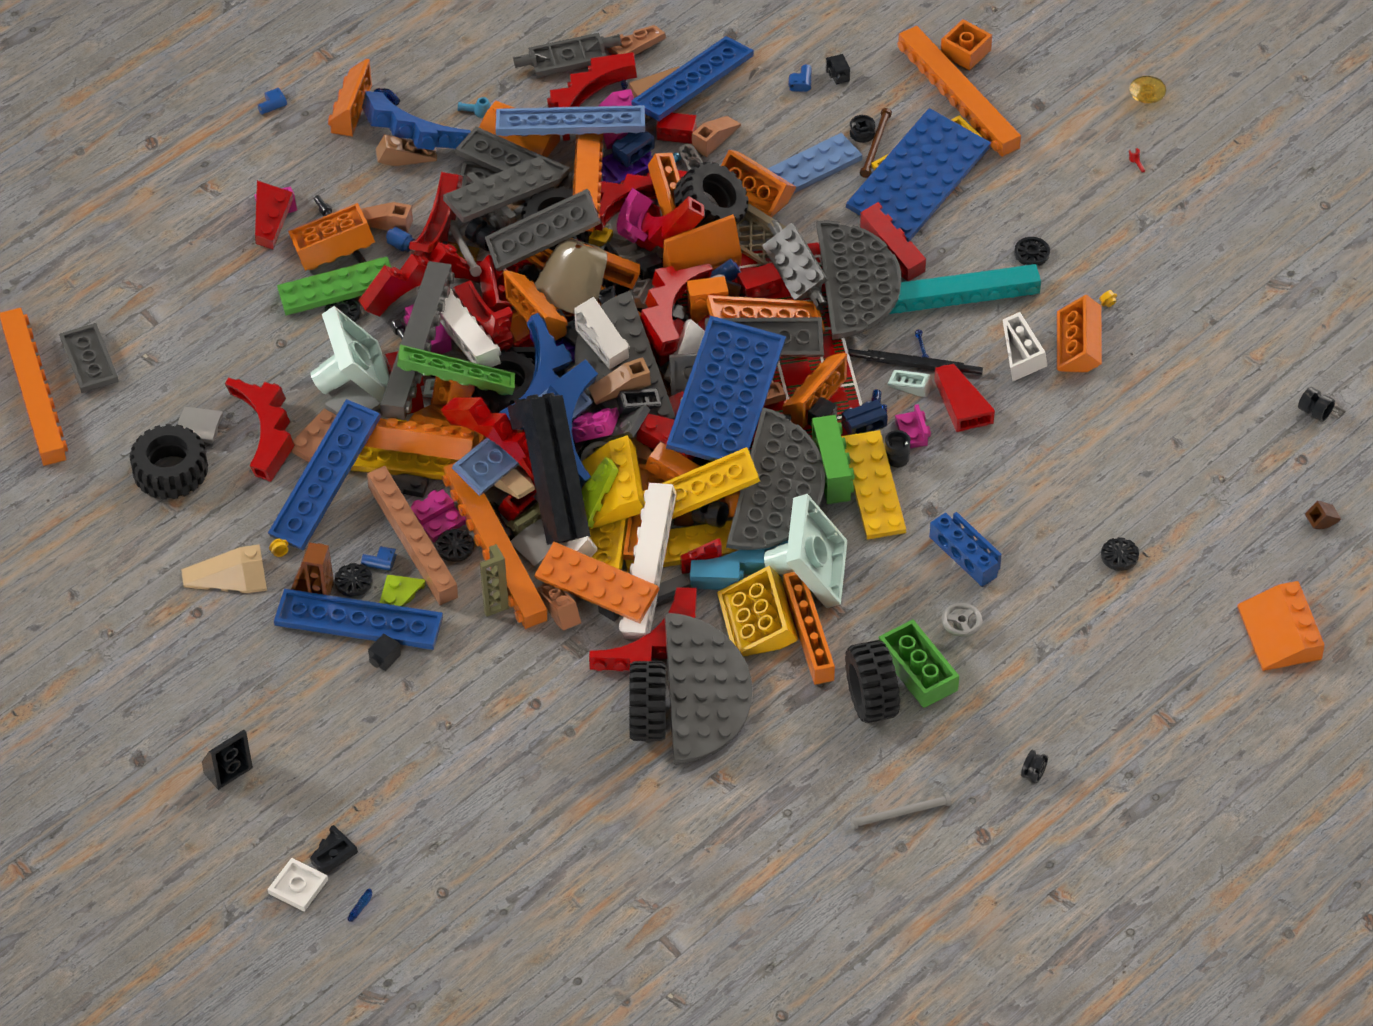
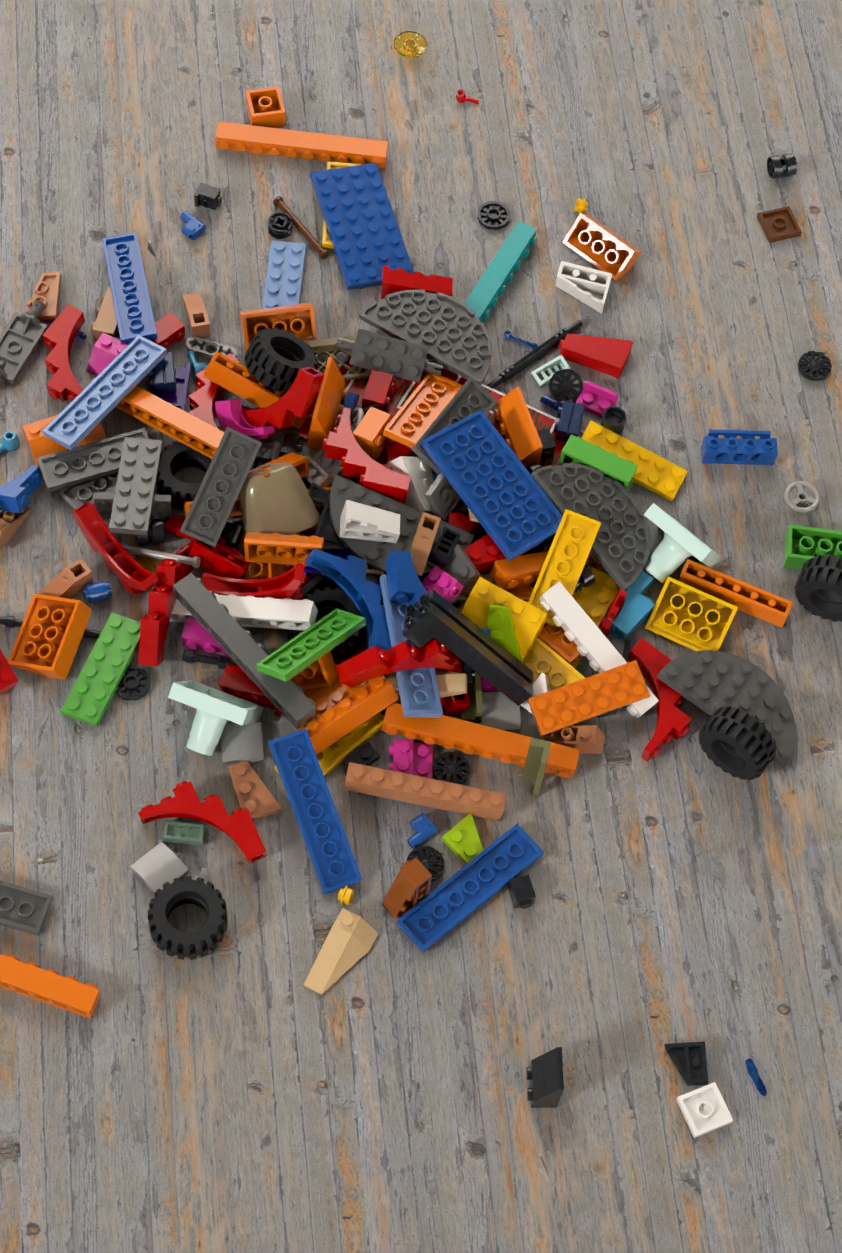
camera: 60 degrees left, 10 degrees up
(242, 419) = (183, 832): none -> sand green plate
(904, 397) = (565, 385): none -> black wheel
(1252, 443) = (779, 224): none -> reddish brown tile

